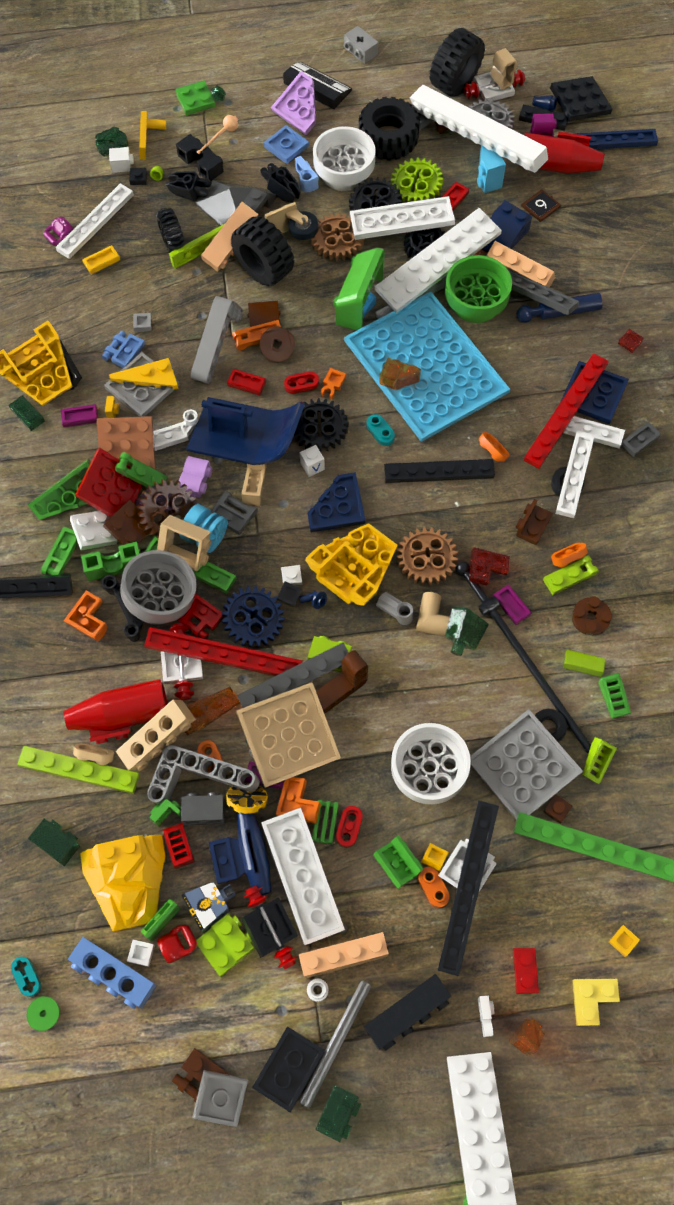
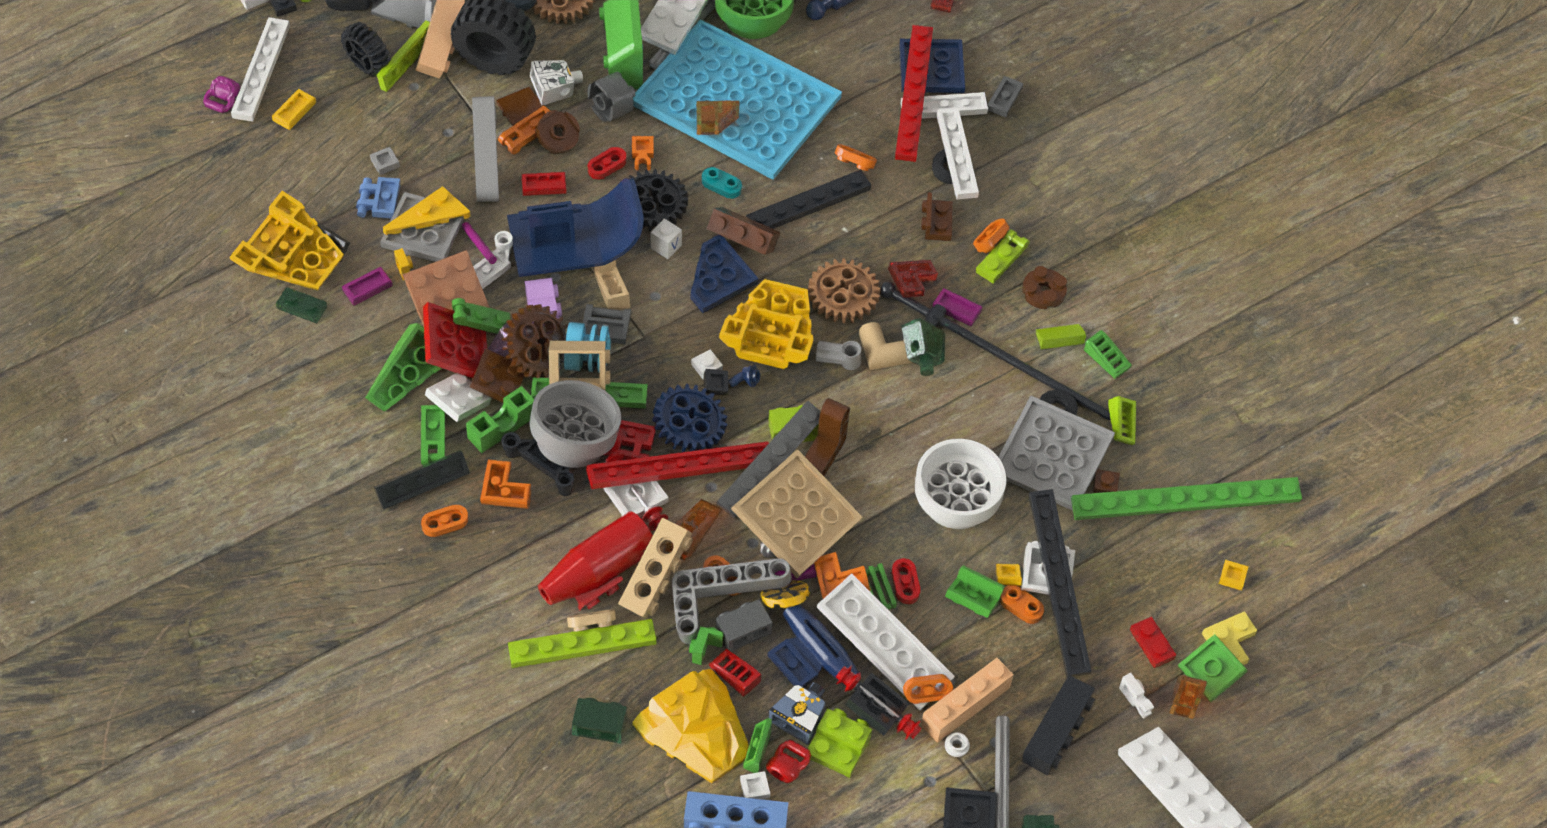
camera: 30 degrees left, 10 degrees down
(33, 626) = (444, 521): none -> orange plate
(173, 412) = (476, 239): none -> magenta bar
(296, 302) = (553, 80): none -> white torso
(313, 933) = (926, 688): none -> orange plate
(329, 331) = (611, 97): none -> dark grey brick
(373, 476) = (743, 230): none -> reddish brown brick
(563, 1020) = (1213, 664): none -> bright green plate

